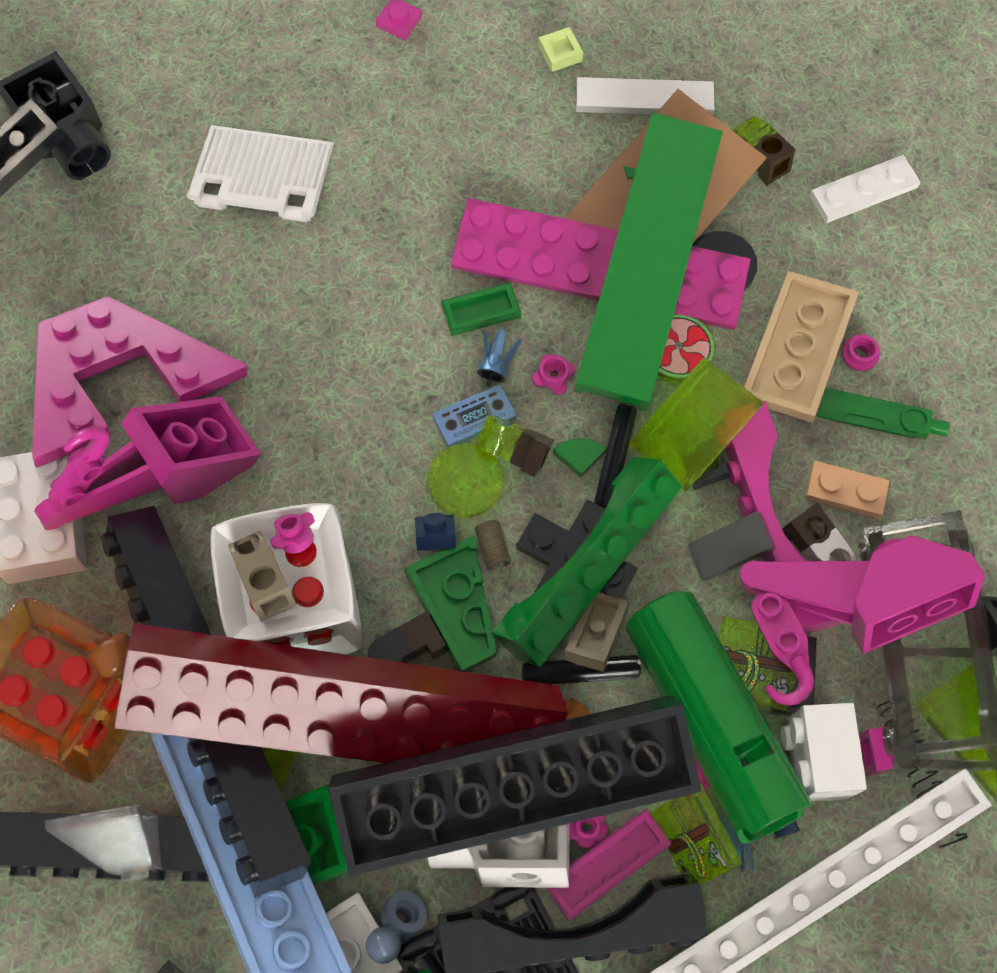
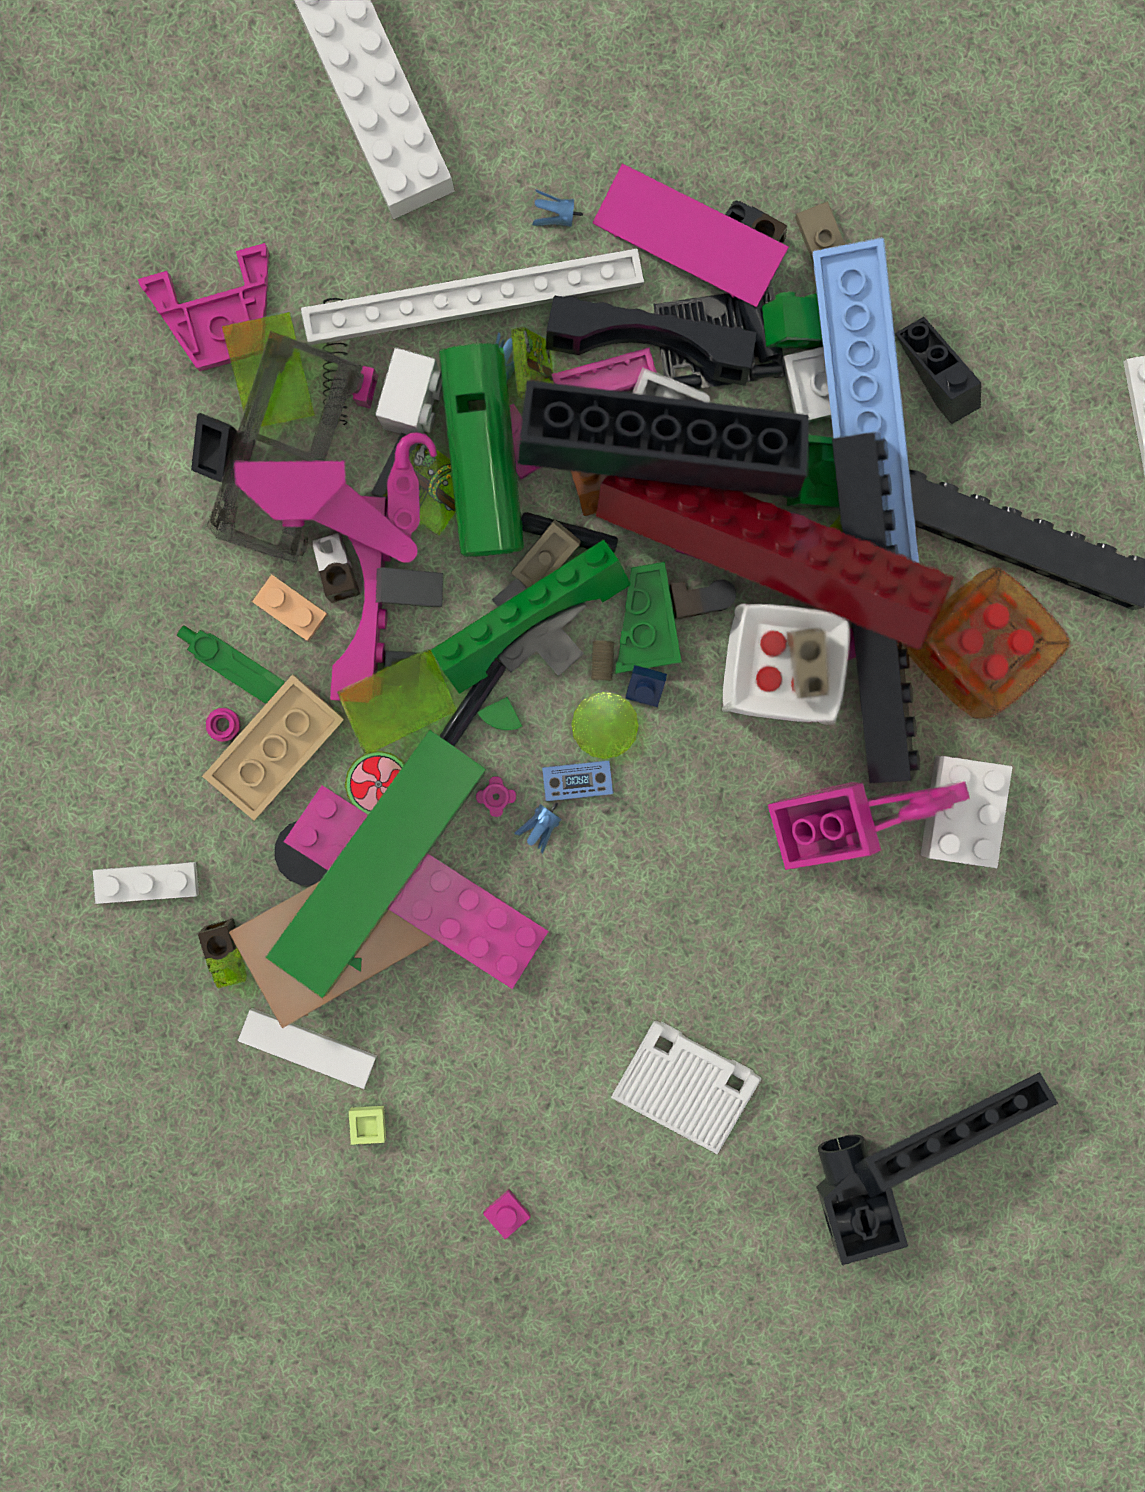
camera: 160 degrees left, 20 degrees up
(98, 339) = (881, 958): dark pink wing -> none
(110, 653) = (941, 640): dark orange piece -> none
(116, 839) = (973, 511): clear slope -> none
(293, 532) = (768, 682): dark pink plate -> none
(384, 942) = (792, 375): sand blue plate -> none
(481, 309) = (536, 880): green tile -> none
(514, 444) = (554, 739): leg -> none

